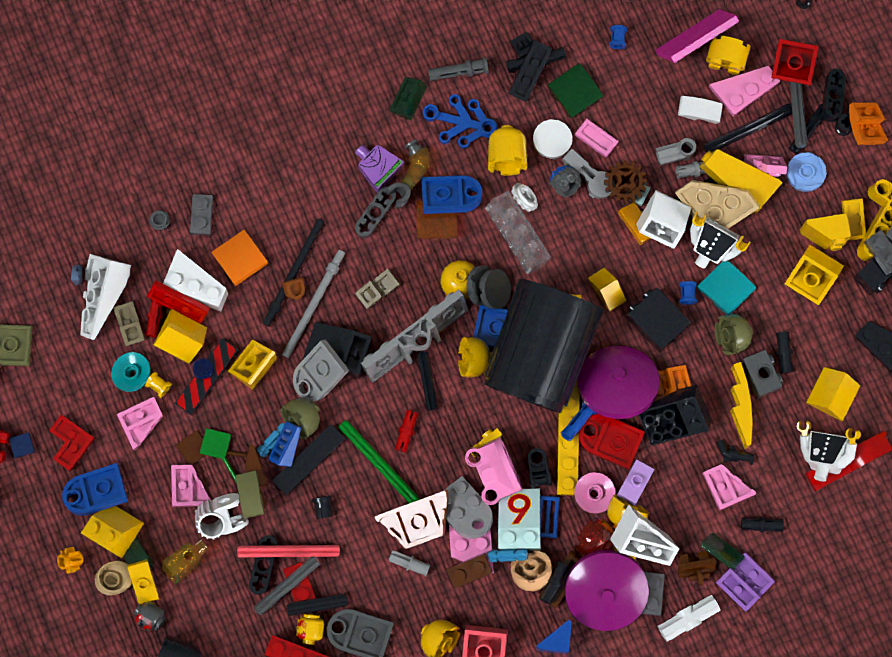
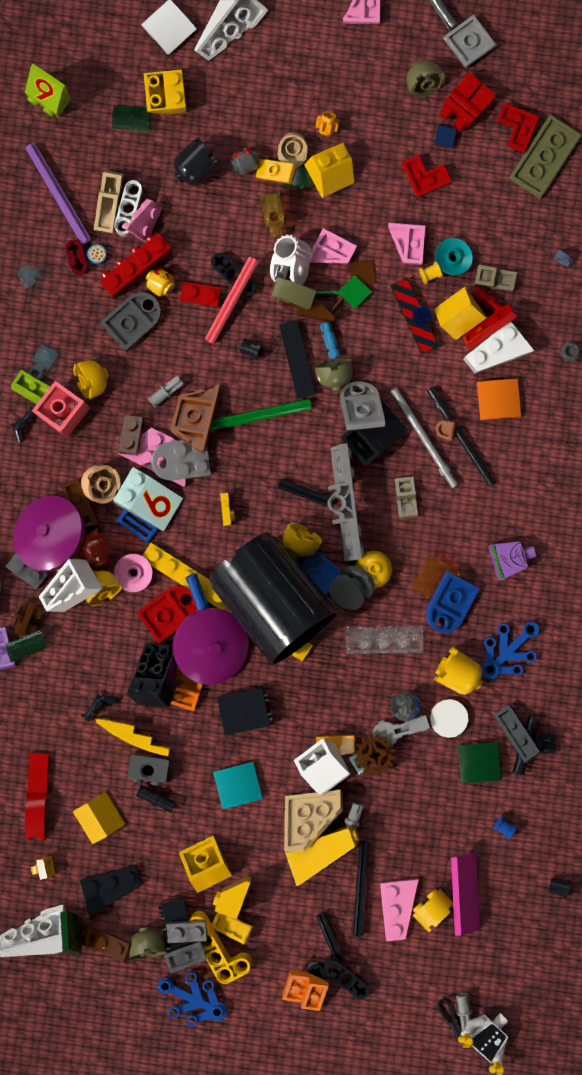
camera: 120 degrees right, 10 degrees up
(96, 491) = (371, 175): blue plate -> none
(105, 284) = (539, 276): white wedge -> none
(201, 215) = (554, 389): flat silver plate -> none
(253, 364) = (402, 358): yellow slope -> none
(285, 446) = (318, 346): blue slope -> none
(287, 585) = (204, 283): dark grey axle -> none
(316, 604) = (175, 298): black axle -> none
(372, 227) = (464, 531): dark grey beam -> none
(406, 431) = (273, 451): red pin -> none
(408, 98) = (555, 619): clear green slope -> none
(419, 164) = (492, 594): piece -> none
(468, 68) = (551, 684): dark grey pin -> none
(495, 470) = (197, 502): bright pink piece -> none
(508, 555) = (123, 472): dark azure axle -> none
(525, 197) = (411, 663): white gear -> none
(538, 470) = (178, 539): black piece -> none
(554, 583) = (79, 495): black pin -> none
(558, 641) = (32, 469): blue slope -> none
(596, 138) = (428, 755): bright pink tile -> none
(607, 289) = (295, 686): yellow slope -> none
(635, 482) = (120, 609): lavender brick -> none
(673, 152) = (376, 811): light grey piece -> none
(688, 292) = (251, 750): blue bush -> none
(700, 108) = (401, 857): white slope -> none
(714, 241) = (279, 797): torso -> none
(726, 487) = (75, 682): bright pink wing -> none
(733, 333) = (194, 766): olive cylinder -> none
(762, 524) = (28, 692): black pin -> none
(770, 164) = (320, 883): bright pink wing -> none
(794, 62) = (393, 962): red slope -> none
(798, 115) = (350, 939): dark grey axle -> none
(806, 172) = (296, 913): light blue tile -> none
(826, 451) = (53, 780): torso -> none

